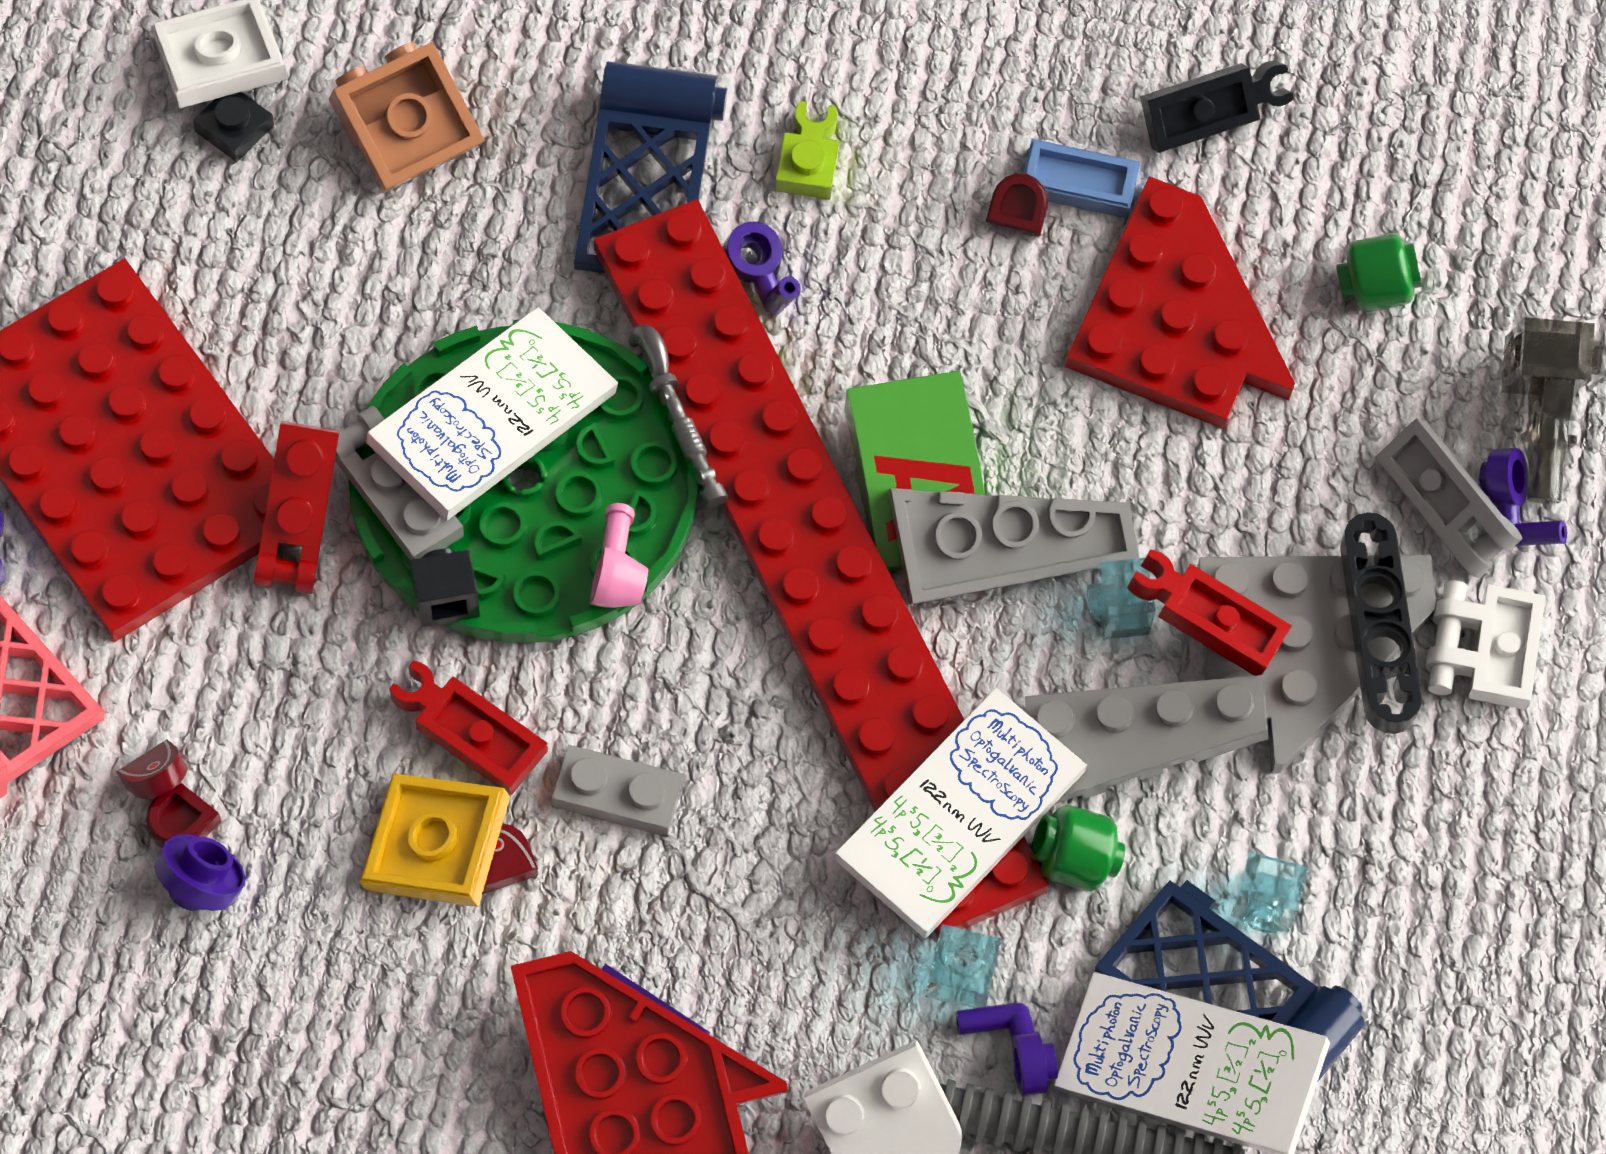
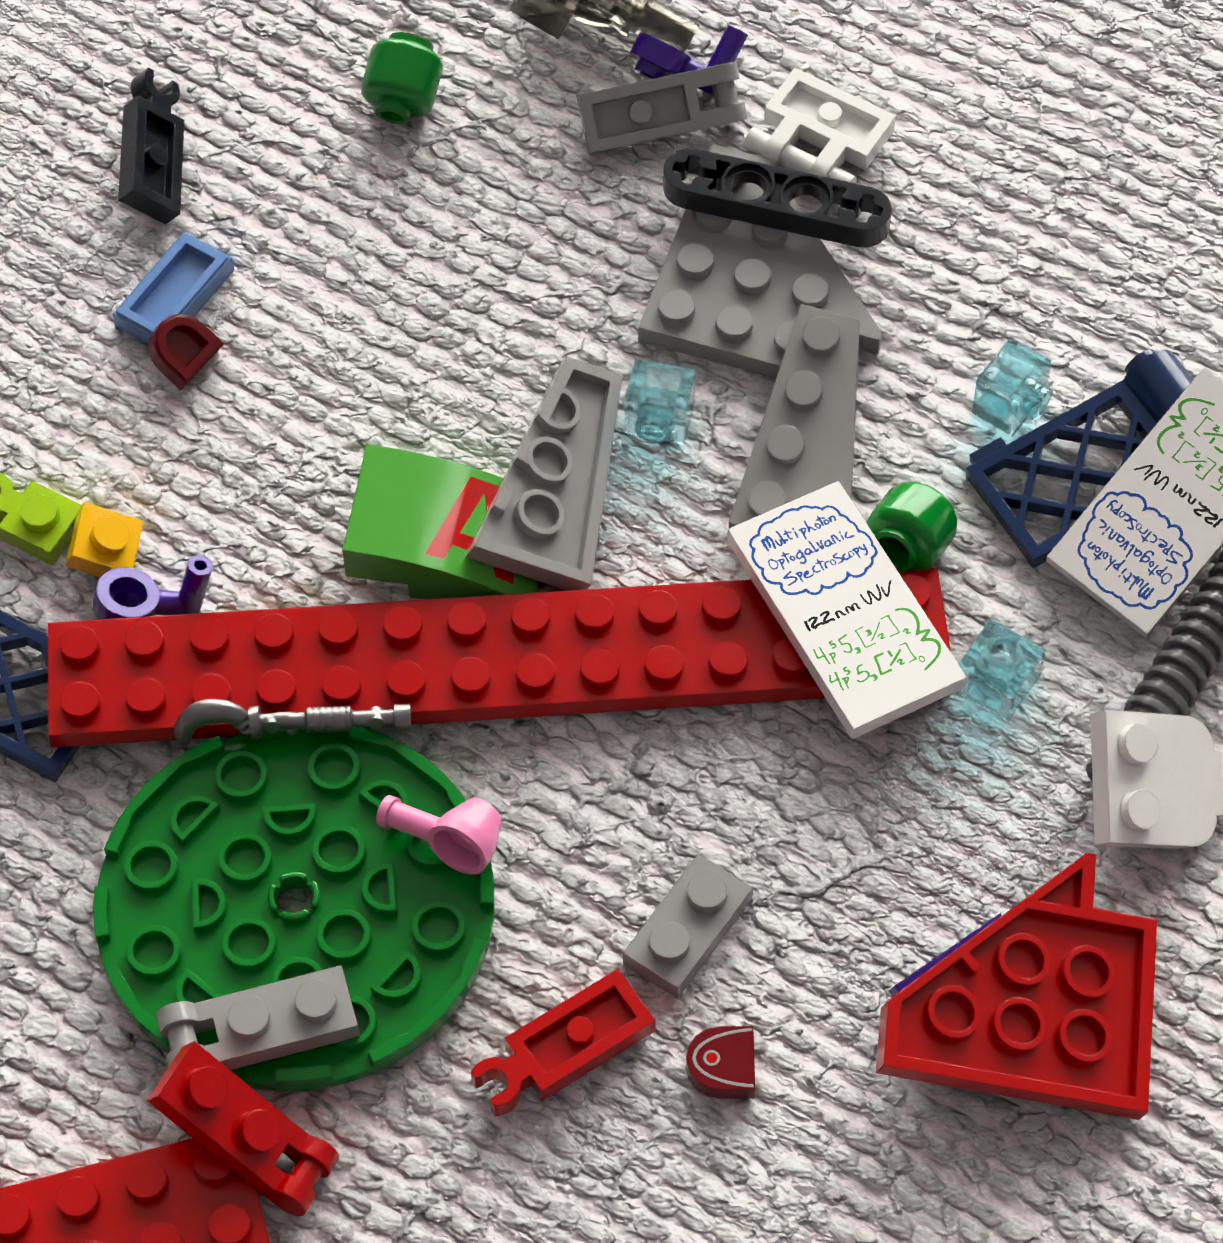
camera: 65 degrees left, 5 degrees down
(435, 839) = (684, 1116): yellow tile -> none
(444, 587) = (408, 1002): black plate -> none
(491, 413) = (223, 893): white tile -> none
(802, 216) = (103, 540): none -> yellow plate
(1032, 1059) = (1115, 642): dark purple plate -> none
(1177, 315) = (362, 263): red wing -> none
(1212, 613) = (720, 322): red plate -> none

